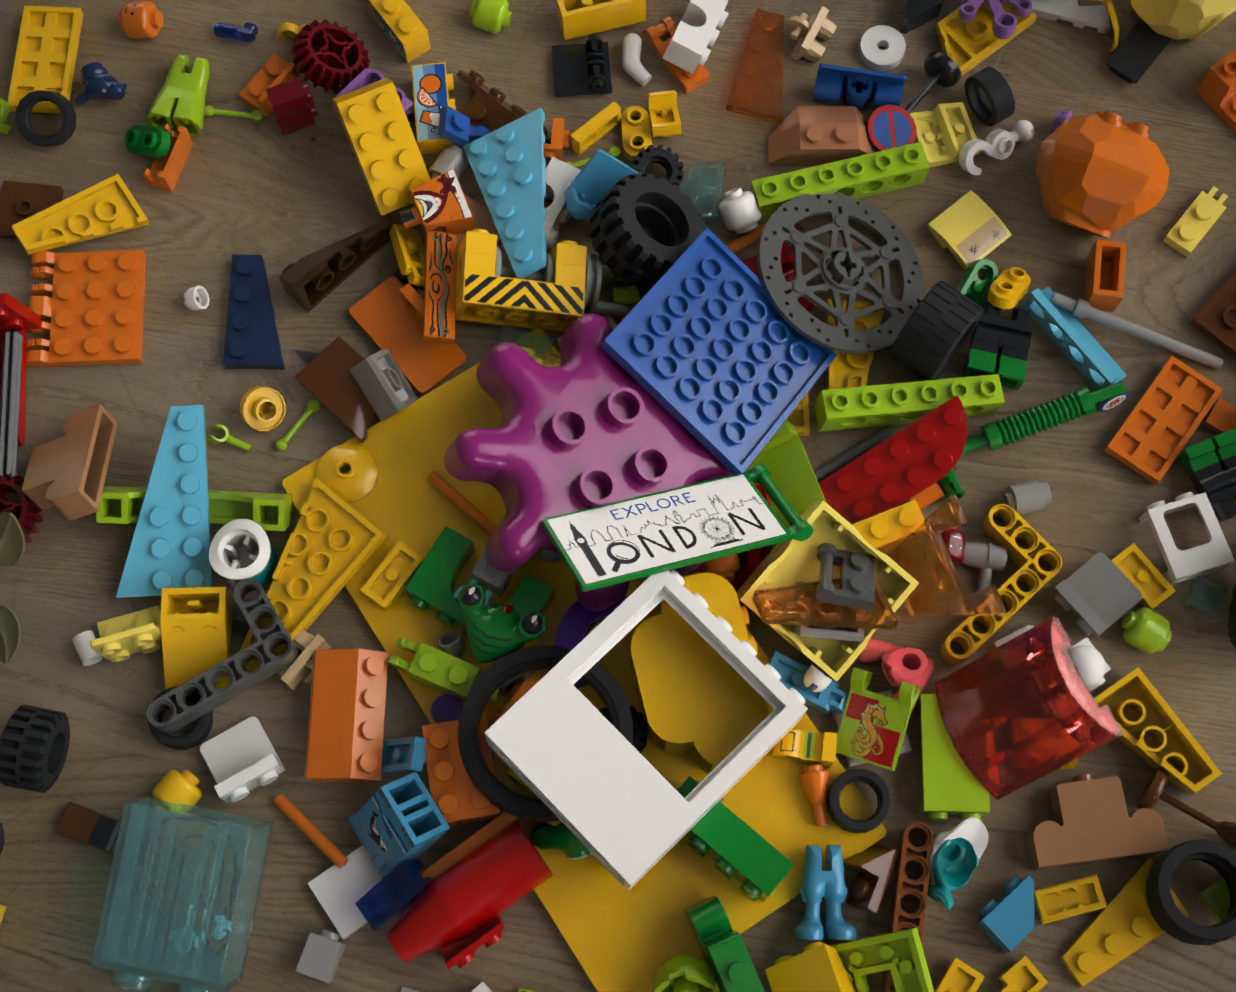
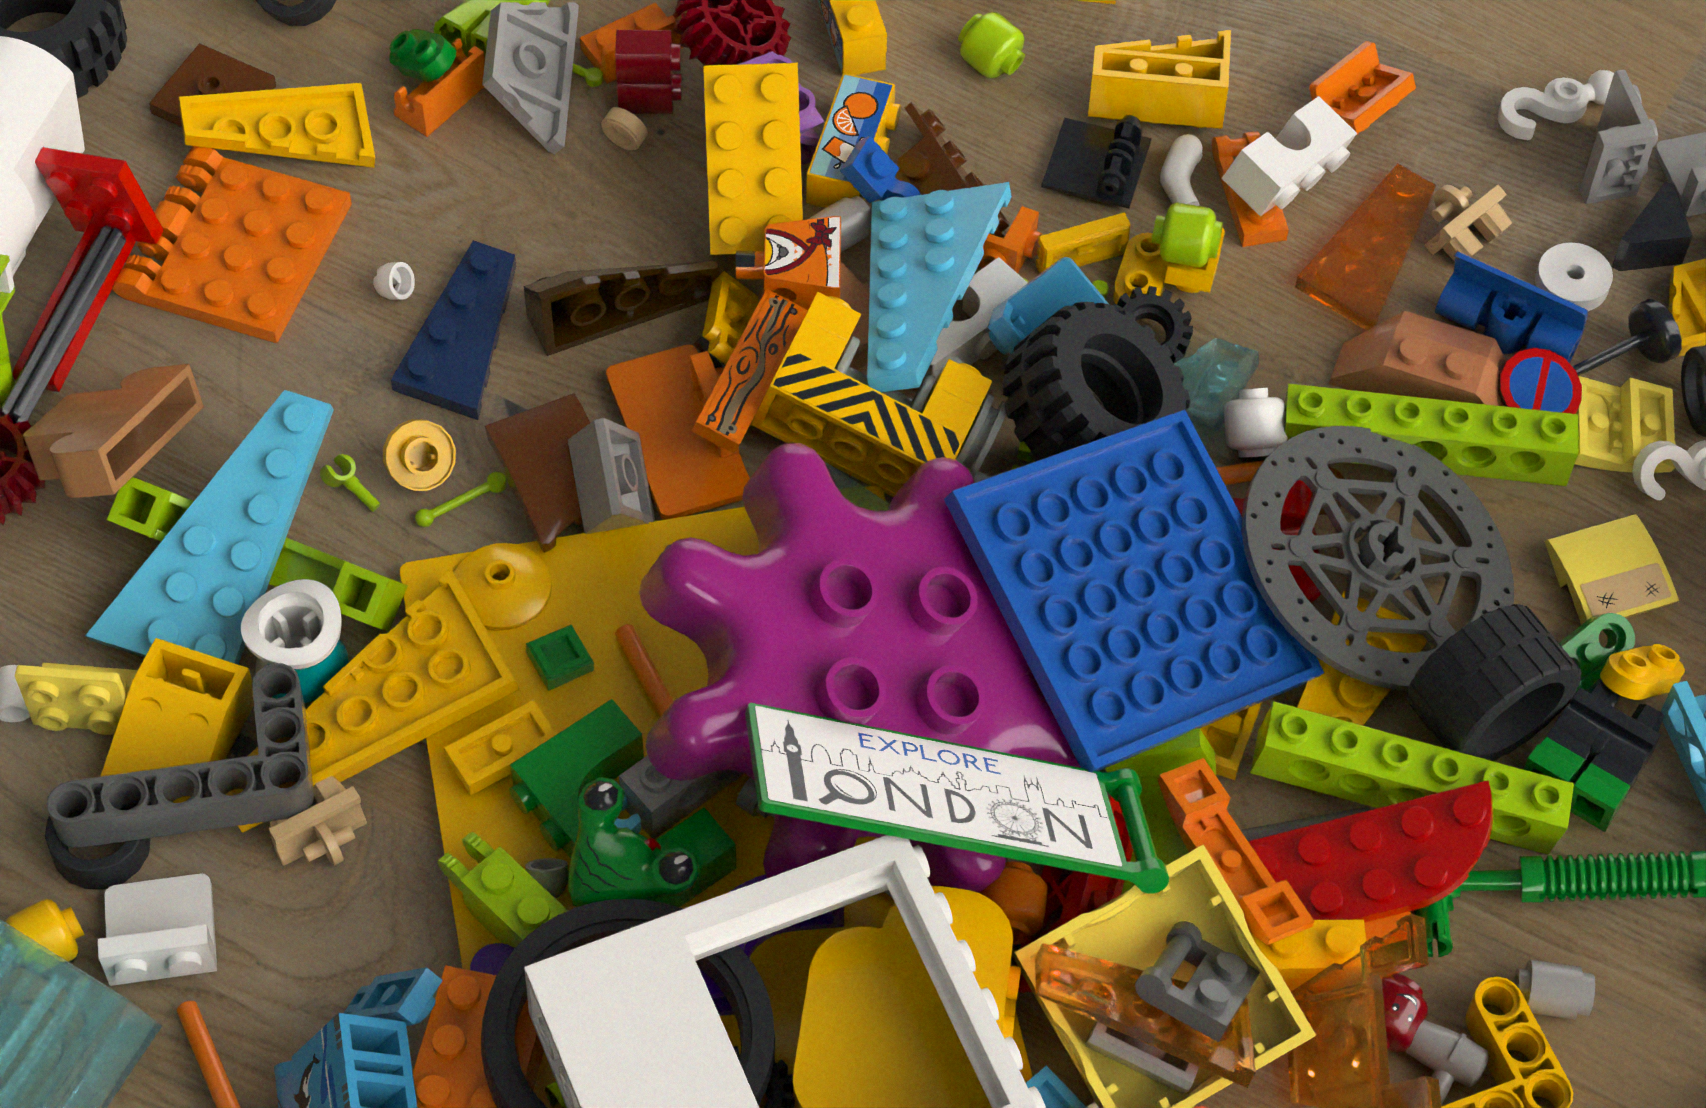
camera: 20 degrees right, 15 degrees down
(219, 125) = (532, 66): none -> light grey wing
(292, 147) = (624, 128): none -> tan tile
(346, 716) = (341, 917): orange slope -> none
(400, 505) = (559, 657): none -> green tile
(658, 104) = (1187, 234): none -> lime head
(816, 482) = (1200, 815): none -> orange slope

